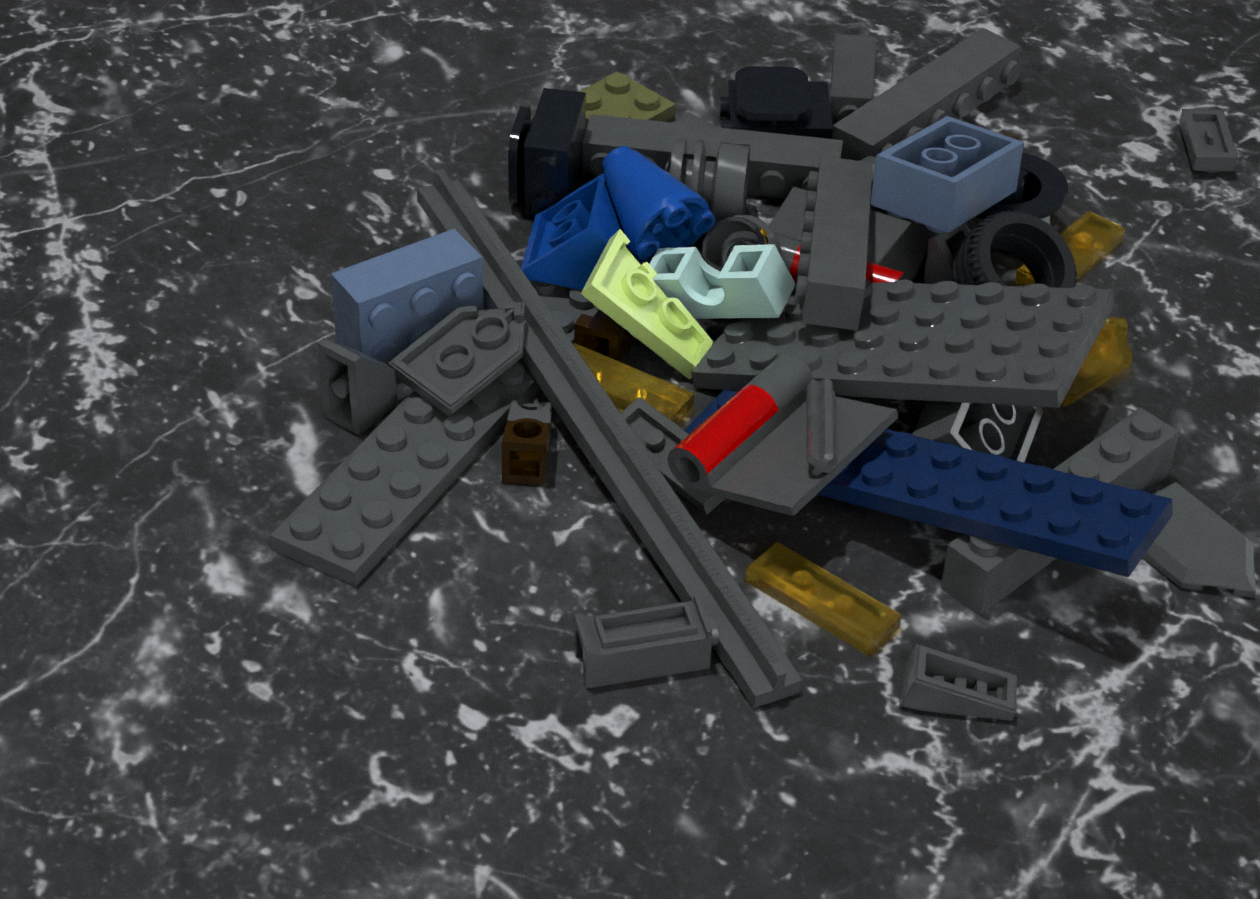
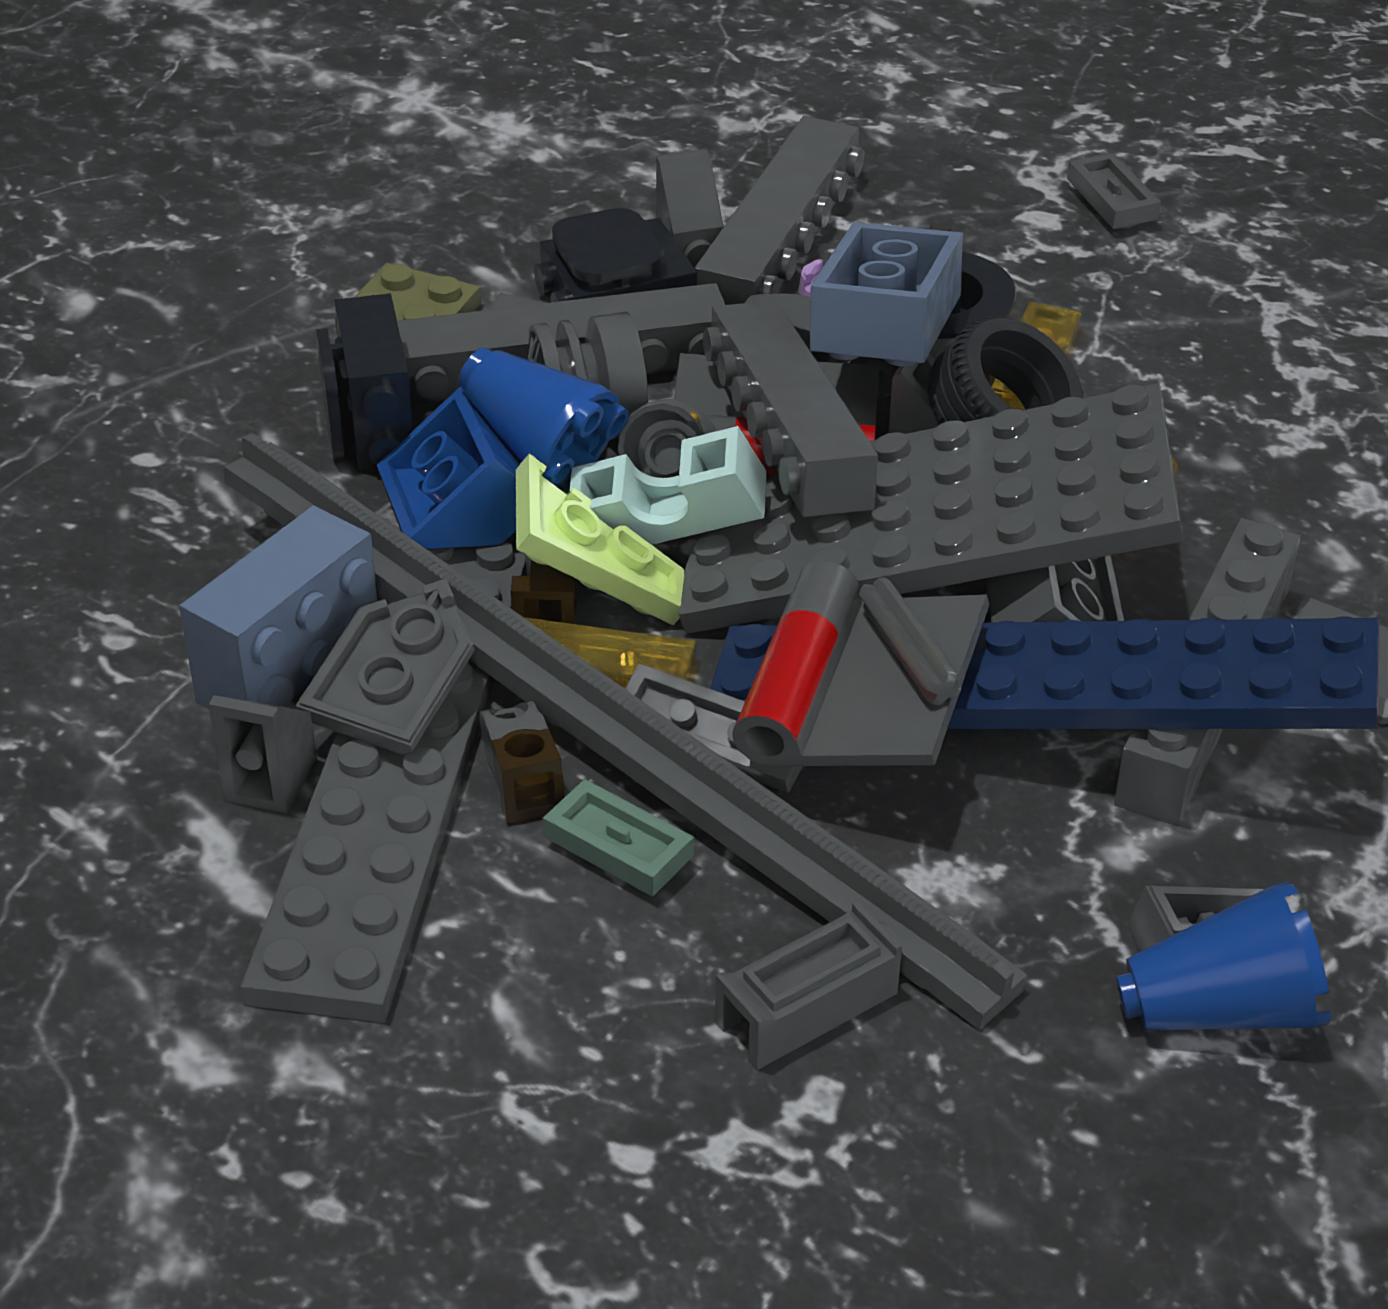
camera: 20 degrees left, 0 degrees up
(567, 510) = (618, 837): none -> sand green plate
(823, 598) = (987, 859): clear yellow tile -> none
(942, 717) = (1231, 971): none -> blue cone

